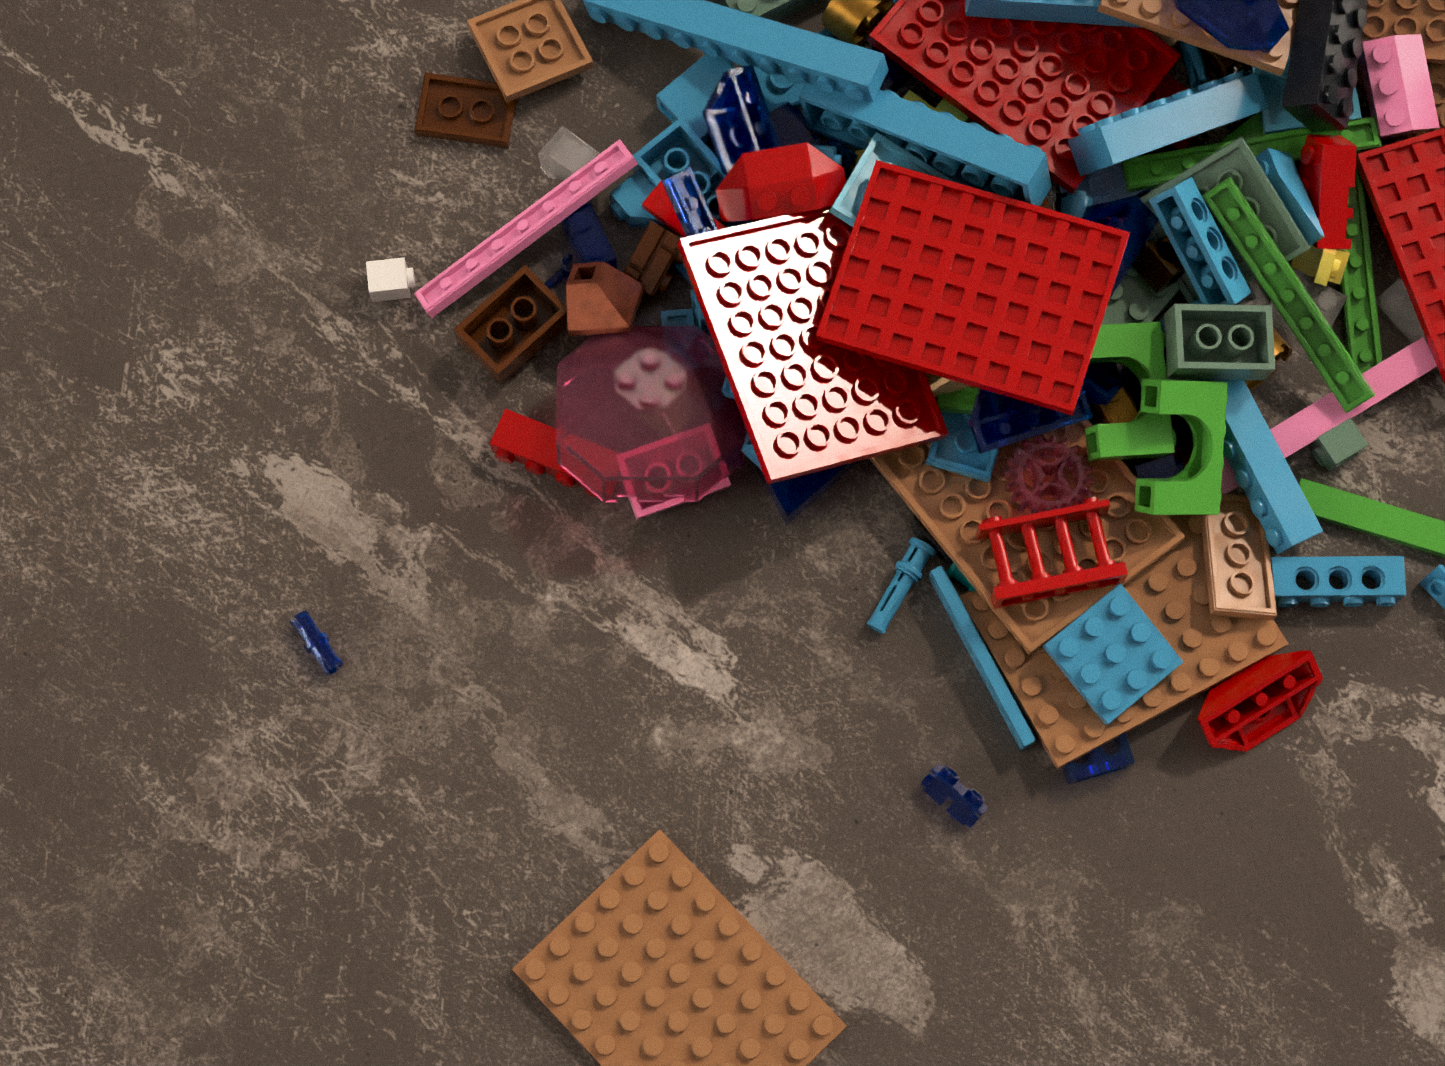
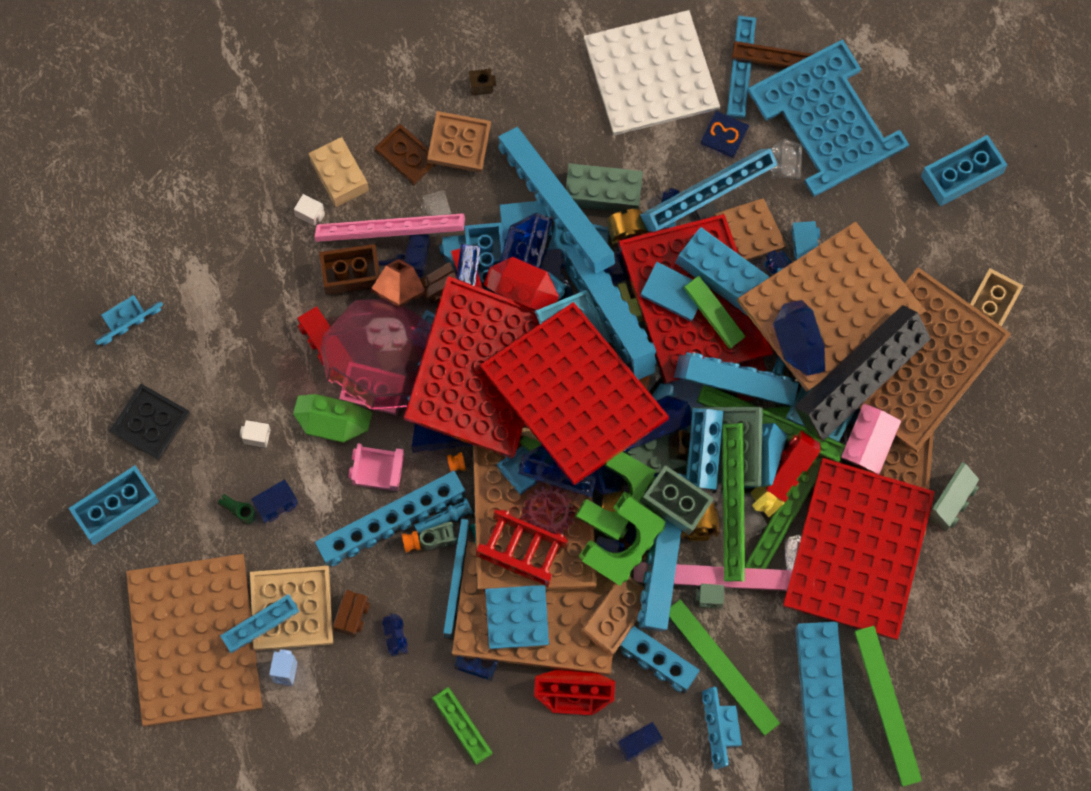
camera: 35 degrees right, 5 degrees down
(235, 607) = (123, 316): none -> dark azure bracket
(316, 643) = (149, 358): clear blue pin -> none
(385, 734) = (149, 421): none -> black plate
(391, 197) = (338, 172): none -> tan brick
(426, 888) = (114, 505): none -> dark azure brick
(550, 648) = (255, 434): none -> white brick
(602, 771) = (237, 509): none -> dark green pin
(638, 554) = (331, 417): none -> bright green wedge
(650, 724) = (275, 501): none -> clear blue brick
(756, 579) = (376, 468): none -> bright pink panel
(761, 911) = (260, 623): none -> dark azure plate
(784, 858) = (311, 594): none -> tan plate
(841, 949) = (283, 667): none -> light blue brick
(861, 498) = (456, 462): none -> orange wheel
(873, 807) = (350, 613): none -> reddish brown brick
(874, 532) = (448, 482): none -> dark azure brick
(881, 650) = (411, 541): none -> orange wheel
(915, 613) = (439, 535): none -> sand green piece
(994, 56) = (666, 290): none -> dark azure tile
(1069, 49) = (714, 312): none -> bright green tile
(1138, 856) = (462, 725): none -> bright green tile
(1394, 709) = (640, 741): none -> clear blue brick

